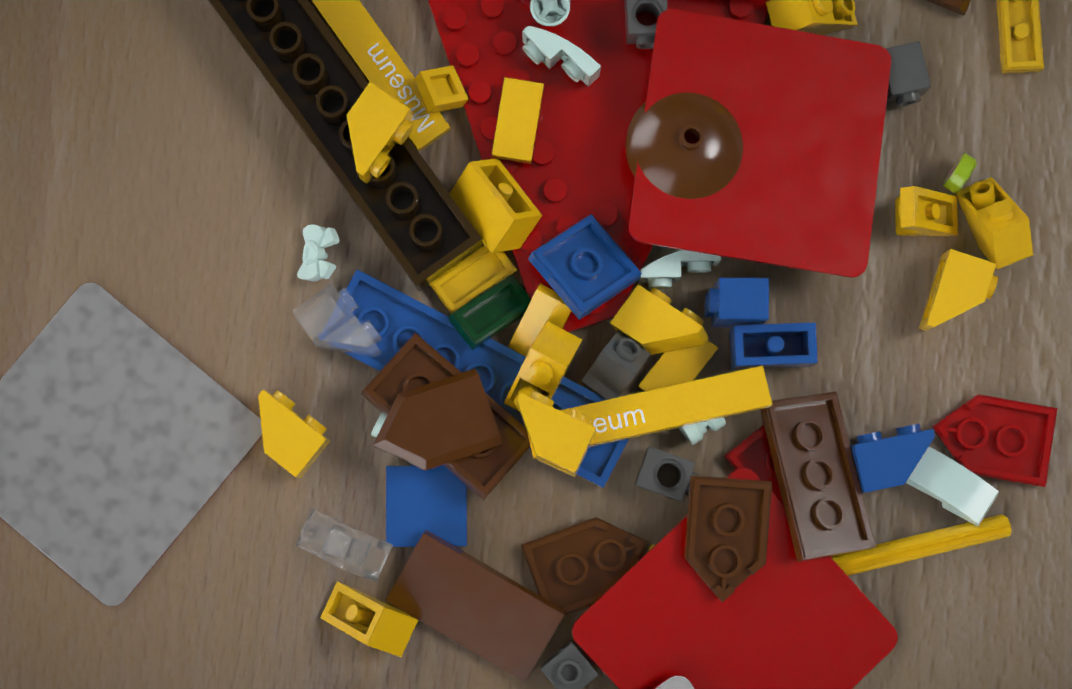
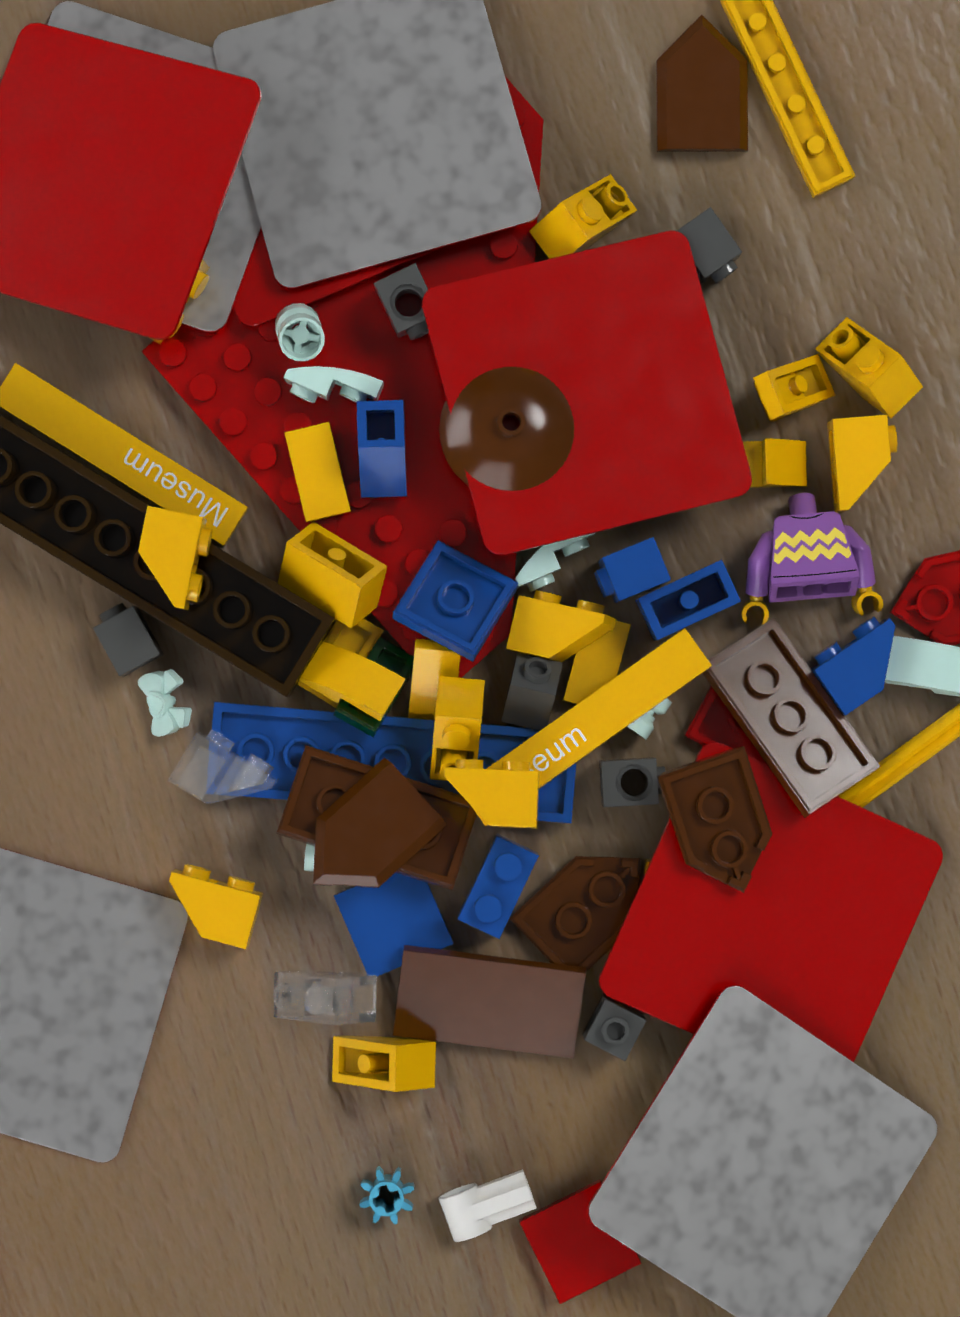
camera: 20 degrees left, 5 degrees up
(309, 191) = (127, 639): none -> dark grey brick
(441, 89) = (221, 471): yellow plate -> none
(476, 294) = (353, 678): none -> yellow slope
(522, 513) = (497, 886): none -> blue brick
(577, 120) = (382, 448): none -> blue slope
(886, 355) = (809, 559): none -> medium lavender torso
(889, 268) = (777, 463): none -> yellow slope
(960, 173) = (811, 329): lime tile -> none

